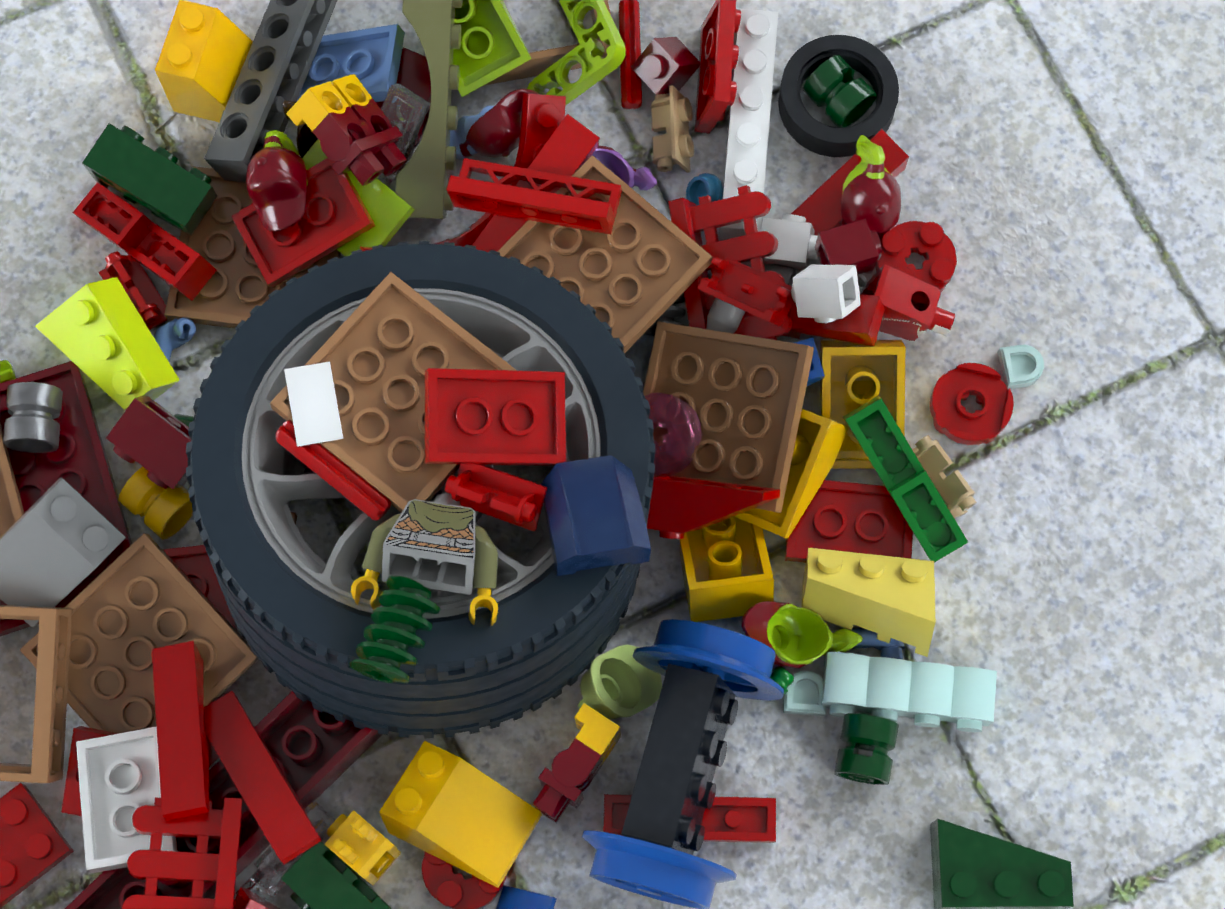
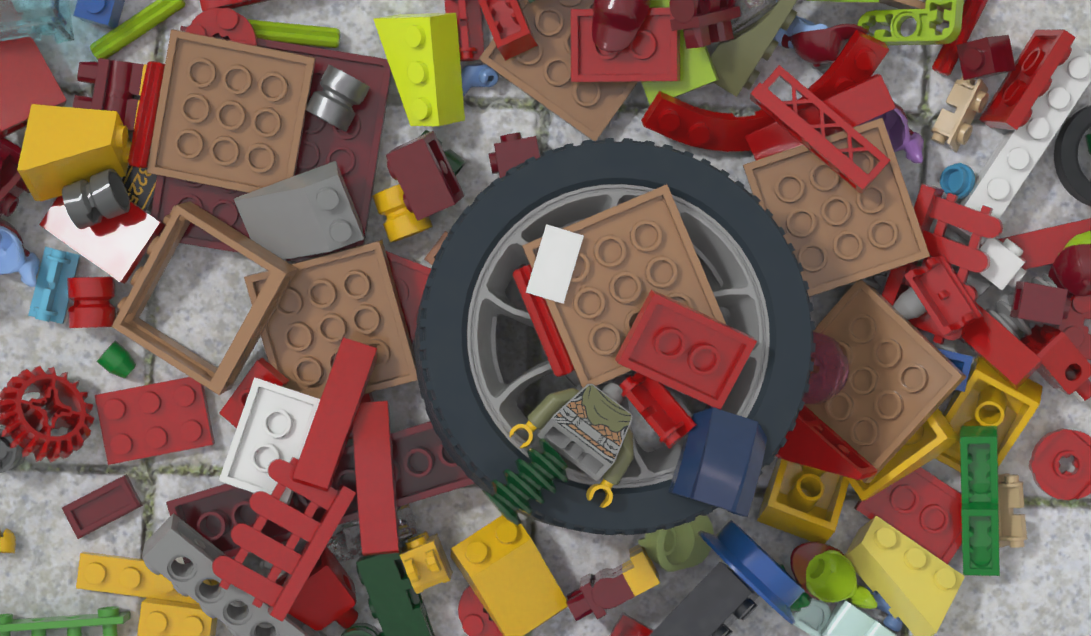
camera: 30 degrees right, 15 degrees up
(826, 292) = (1002, 334): white brick -> none

